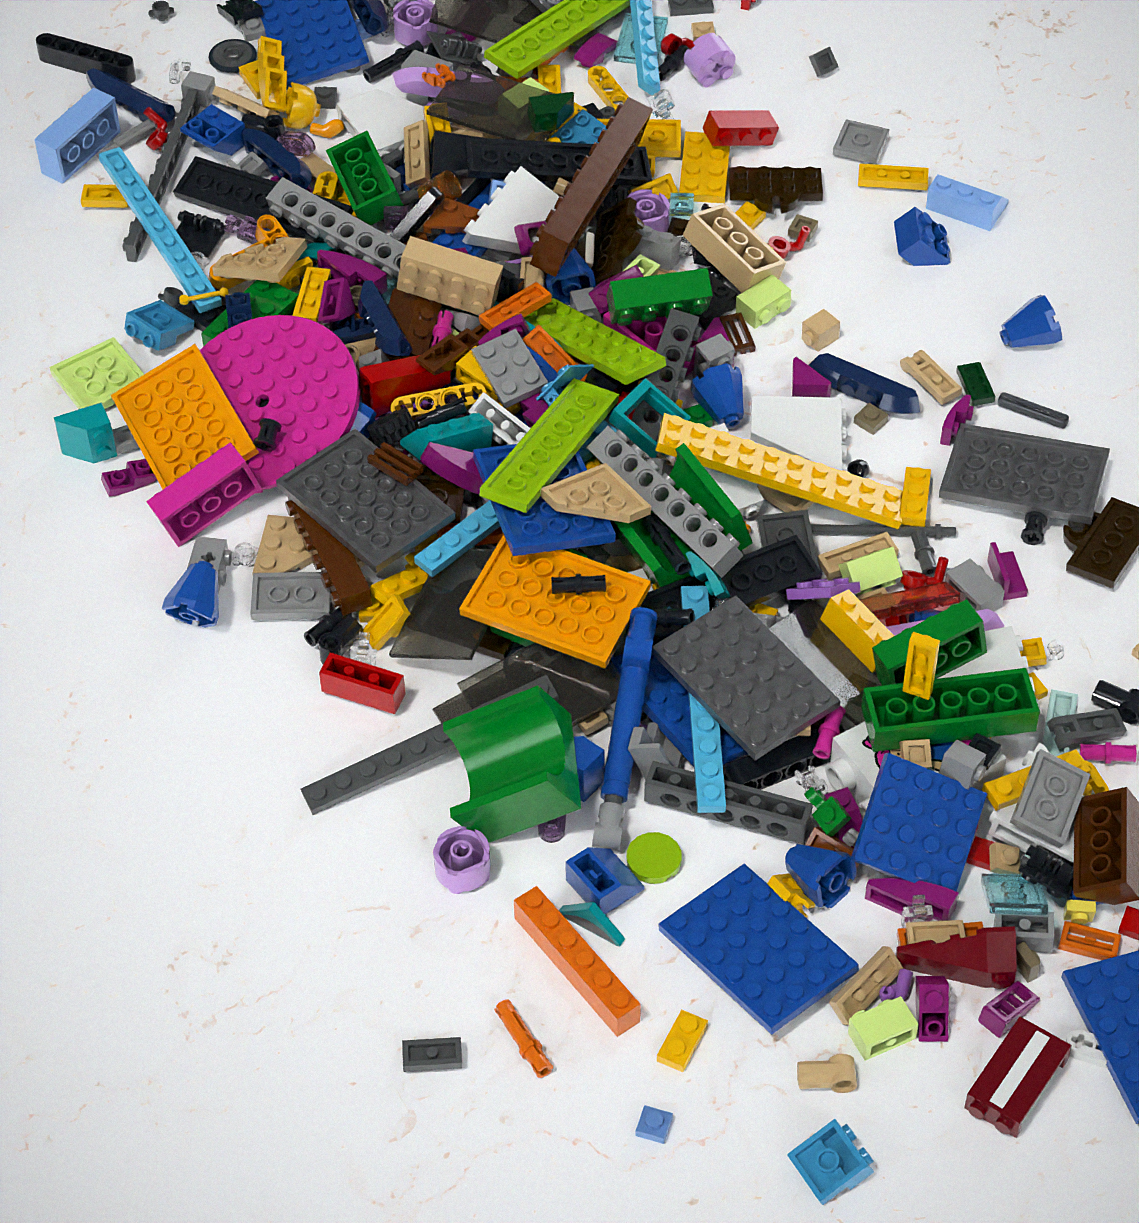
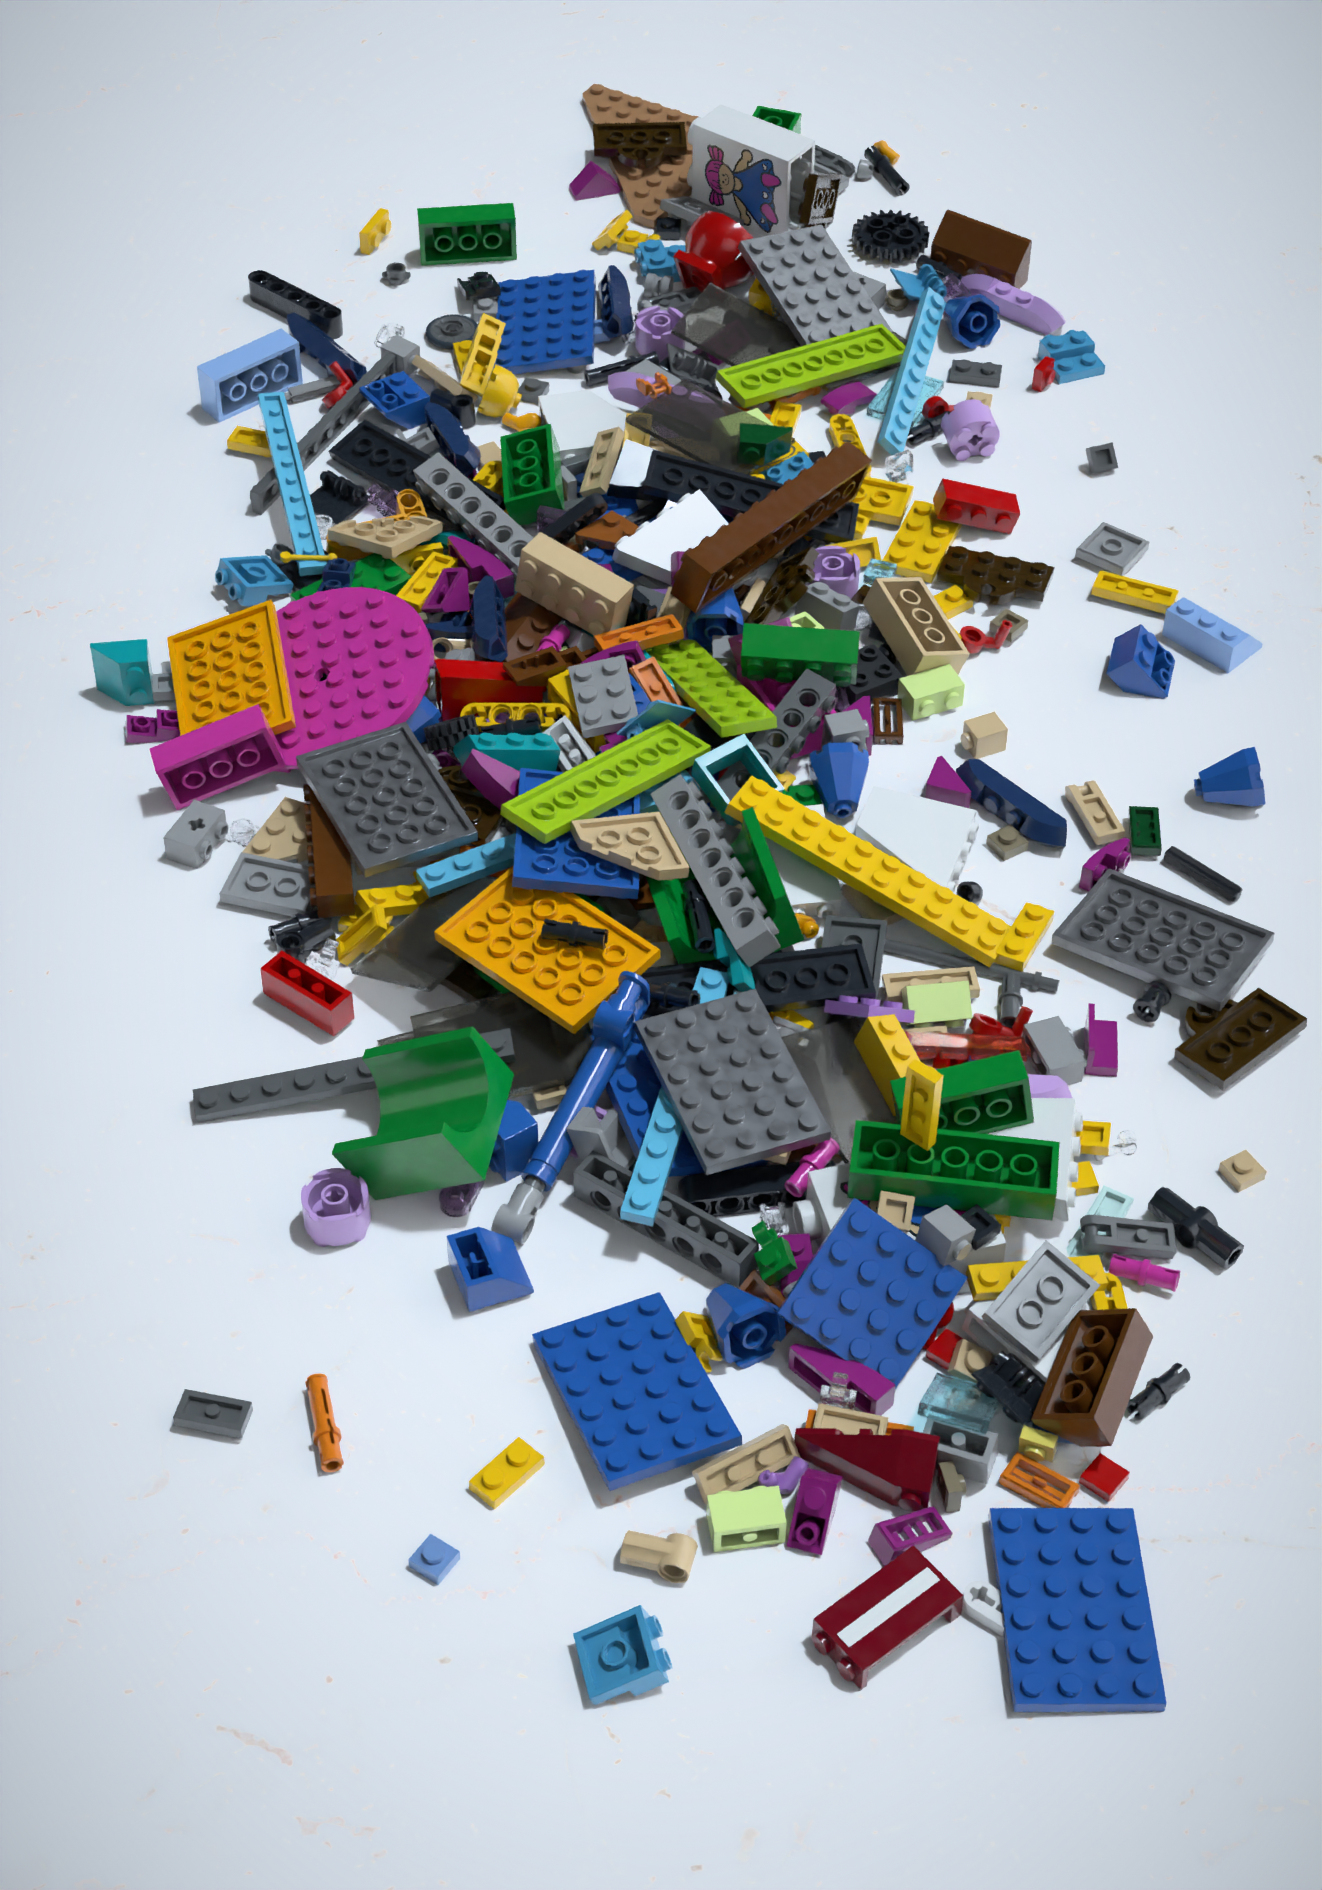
camera: 15 degrees right, 5 degrees down
(96, 374) = (165, 613): yellowish green plate -> none
(195, 596) = (163, 859): blue cone -> none
(267, 434) = (309, 709): black bush -> none
(297, 142) = (479, 428): clear purple plate -> none
(398, 462) = (436, 765): reddish brown tile -> none
(445, 182) = (618, 498): clear orange wheel -> none
(577, 961) = (420, 1352): orange brick -> none
(594, 920) = (457, 1310): teal tile -> none
(654, 857) = (559, 1260): lime tile -> none

